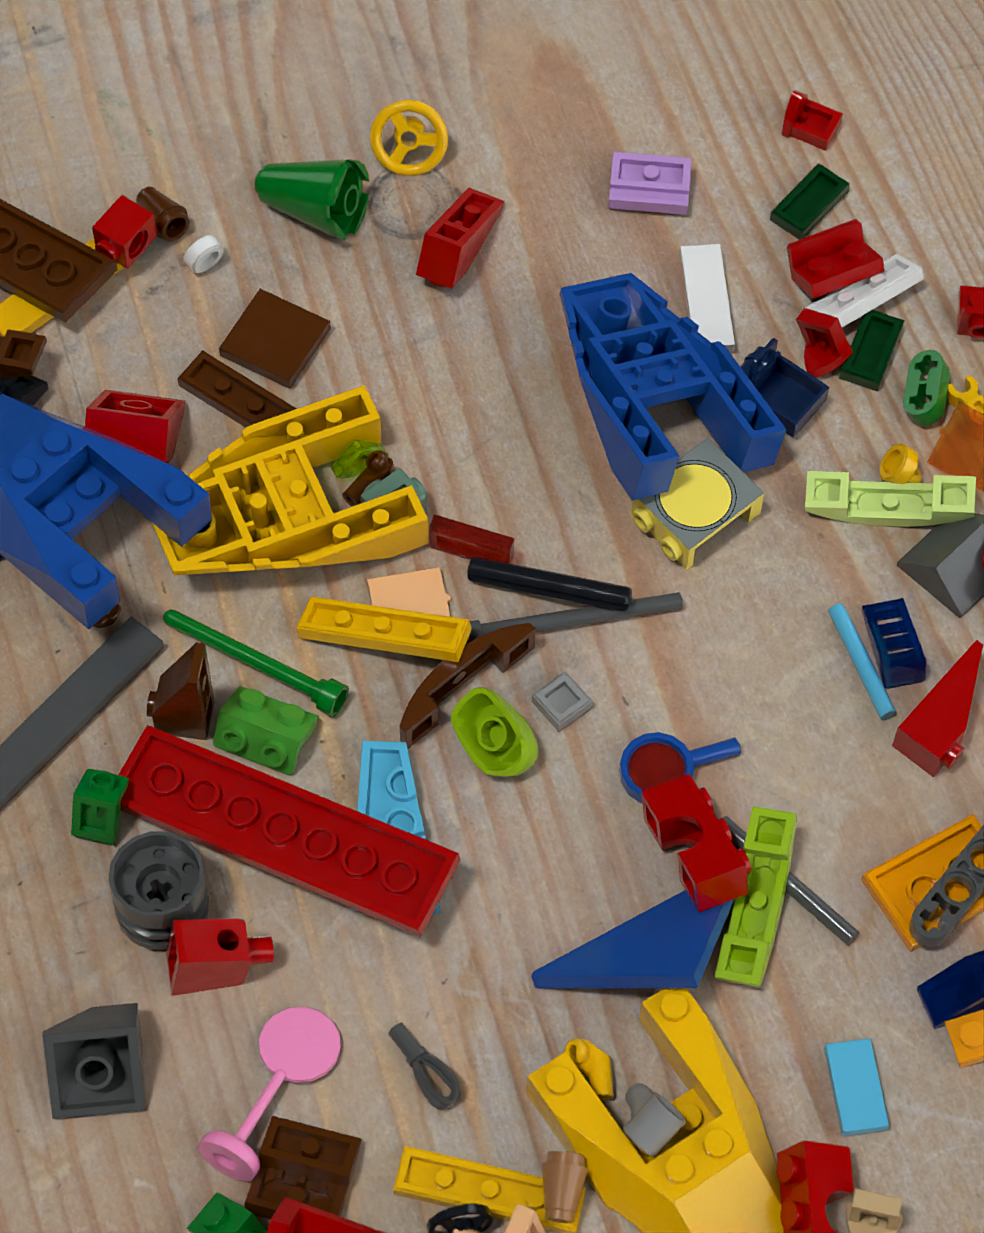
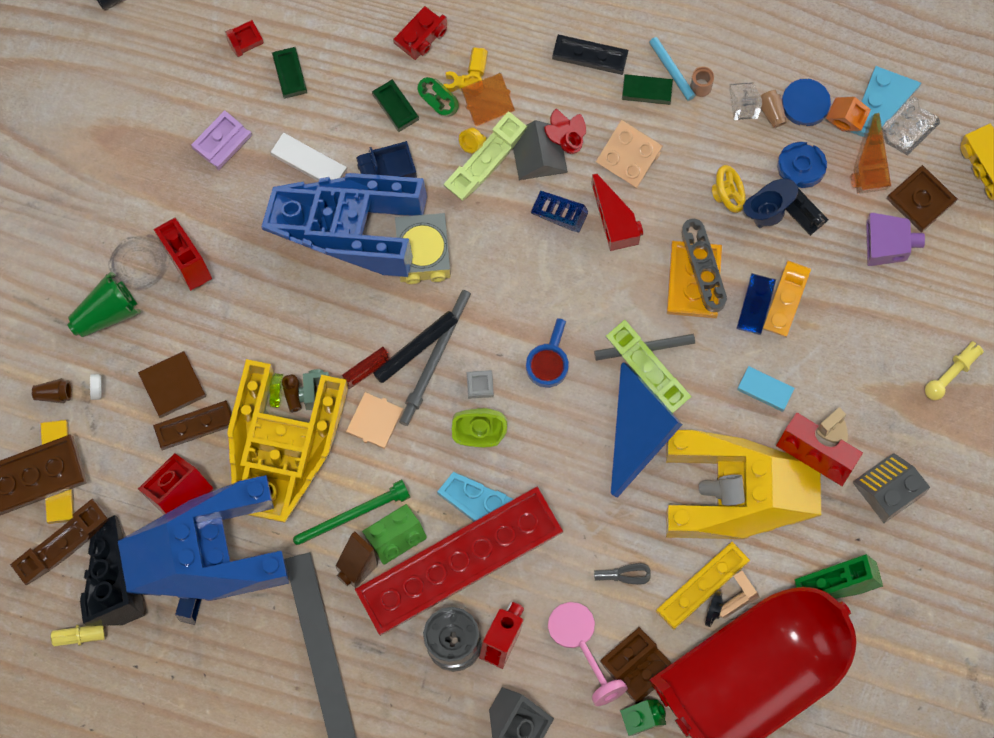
camera: 55 degrees left, 10 degrees up
(98, 806) = (382, 639): green bracket -> none
(124, 231) = (55, 418): red brick -> none
(384, 629) = (384, 441): yellow tile -> none
(412, 124) = (103, 237): yellow piece -> none
(500, 647) = (433, 395): reddish brown slope -> none
(562, 1184) = (727, 550): medium nougat cone -> none
(594, 1064) = (675, 496): yellow arm -> none
(684, 815) = (583, 369): red arch -> none
(824, 340) = (379, 126): red tile -> none
(832, 259) = (336, 87): red bracket -> none
(862, 661) = (558, 232): medium azure bar -> none
(865, 295) = (363, 87): white tile -> none

